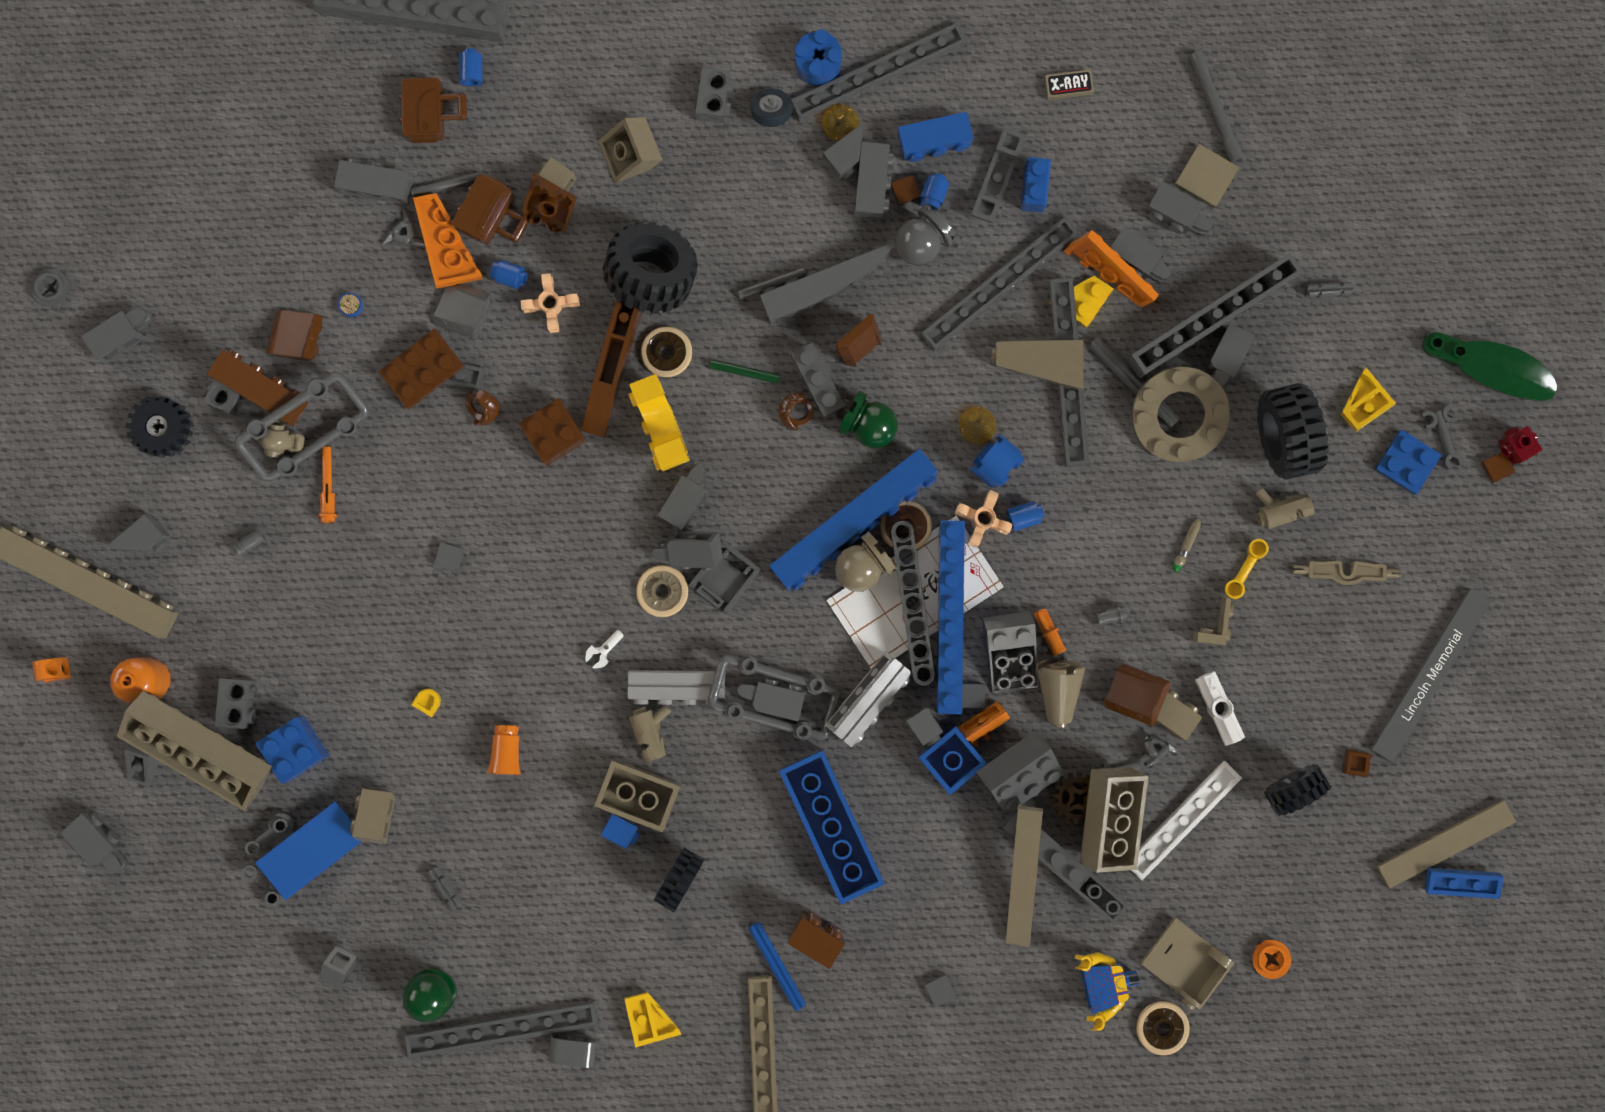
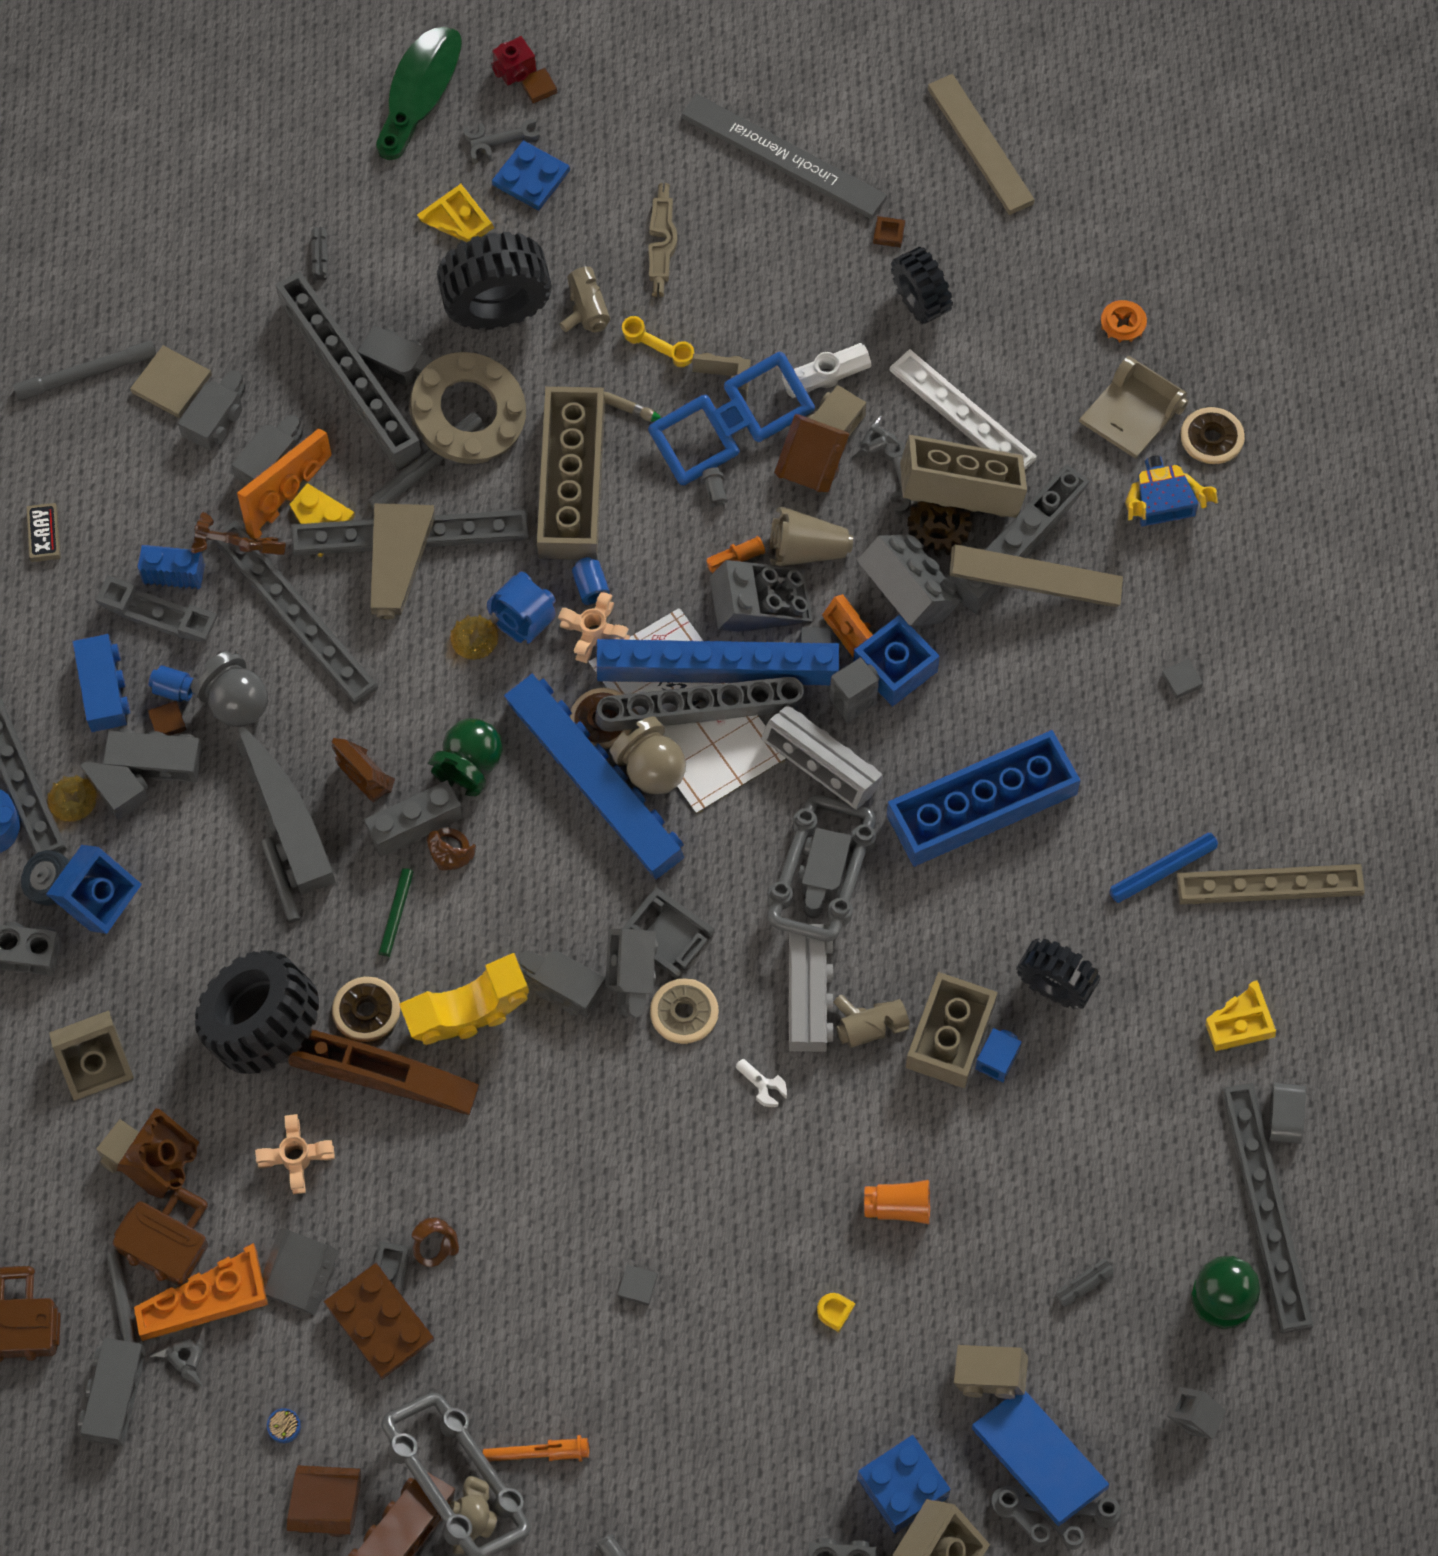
camera: 90 degrees left, 20 degrees down
(508, 274) = (252, 1209): blue brick -> none
(552, 432) = (471, 1146): reddish brown brick -> none
(756, 141) = (94, 889): none -> blue brick
(816, 939) = (1125, 811): reddish brown brick -> none
(1052, 254) = (202, 533): none -> reddish brown piece
(1121, 498) = (571, 473): none -> dark tan brick
(1172, 629) = (730, 418): none -> blue bar
(1464, 883) = (1025, 125): blue plate -> none

